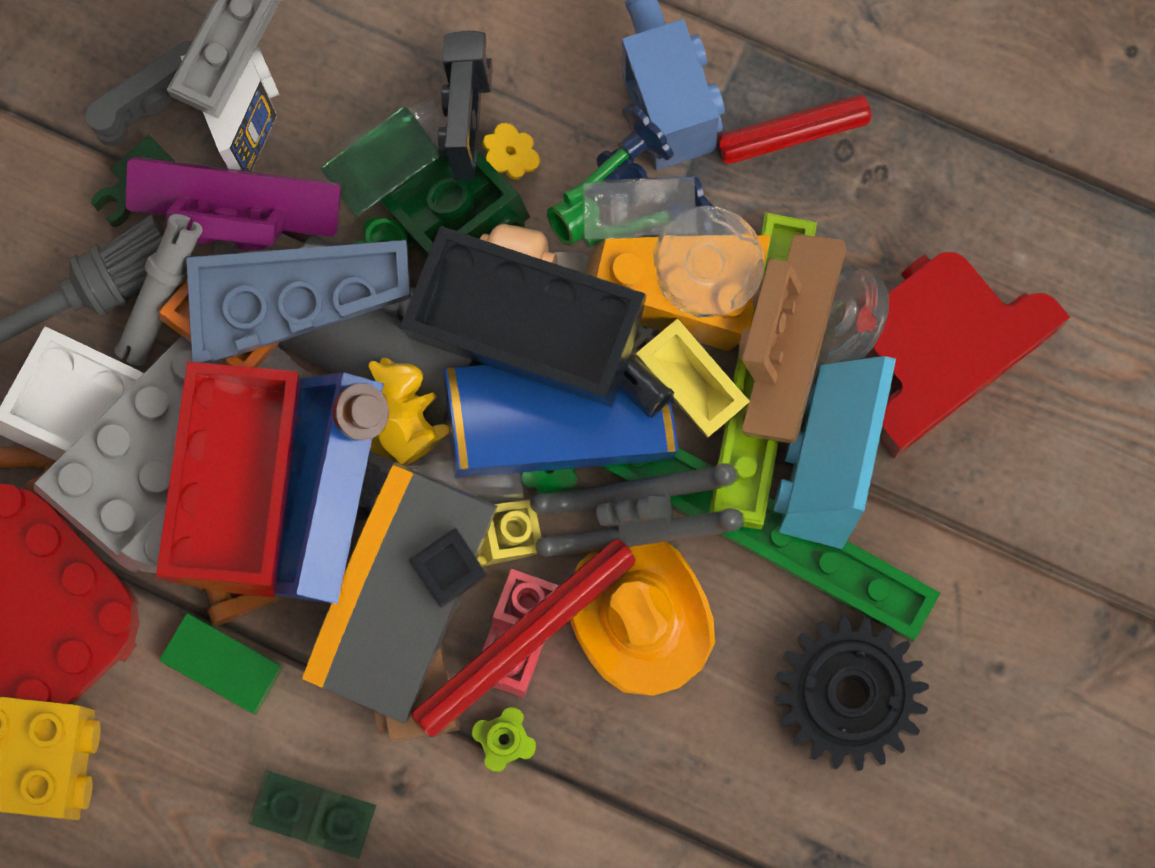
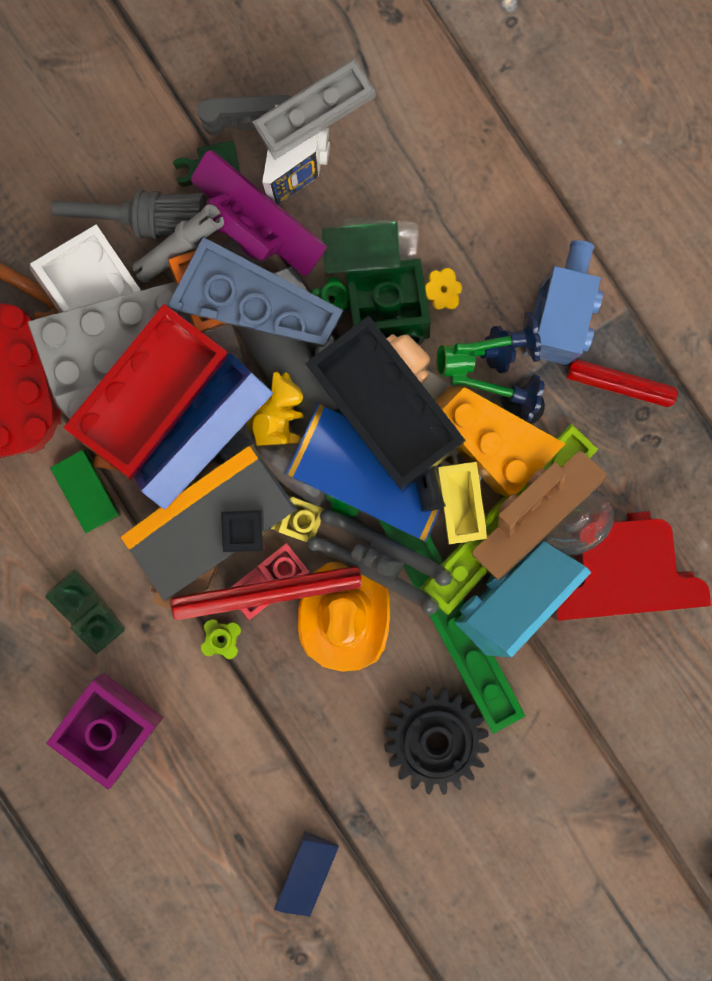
camera: 25 degrees right, 10 degrees up
(360, 411) = (246, 404): plate -> none
(467, 77) = (447, 226): black plate -> none
(635, 205) = (497, 380): clear slope -> none
(708, 261) = (517, 441): clear tile -> none

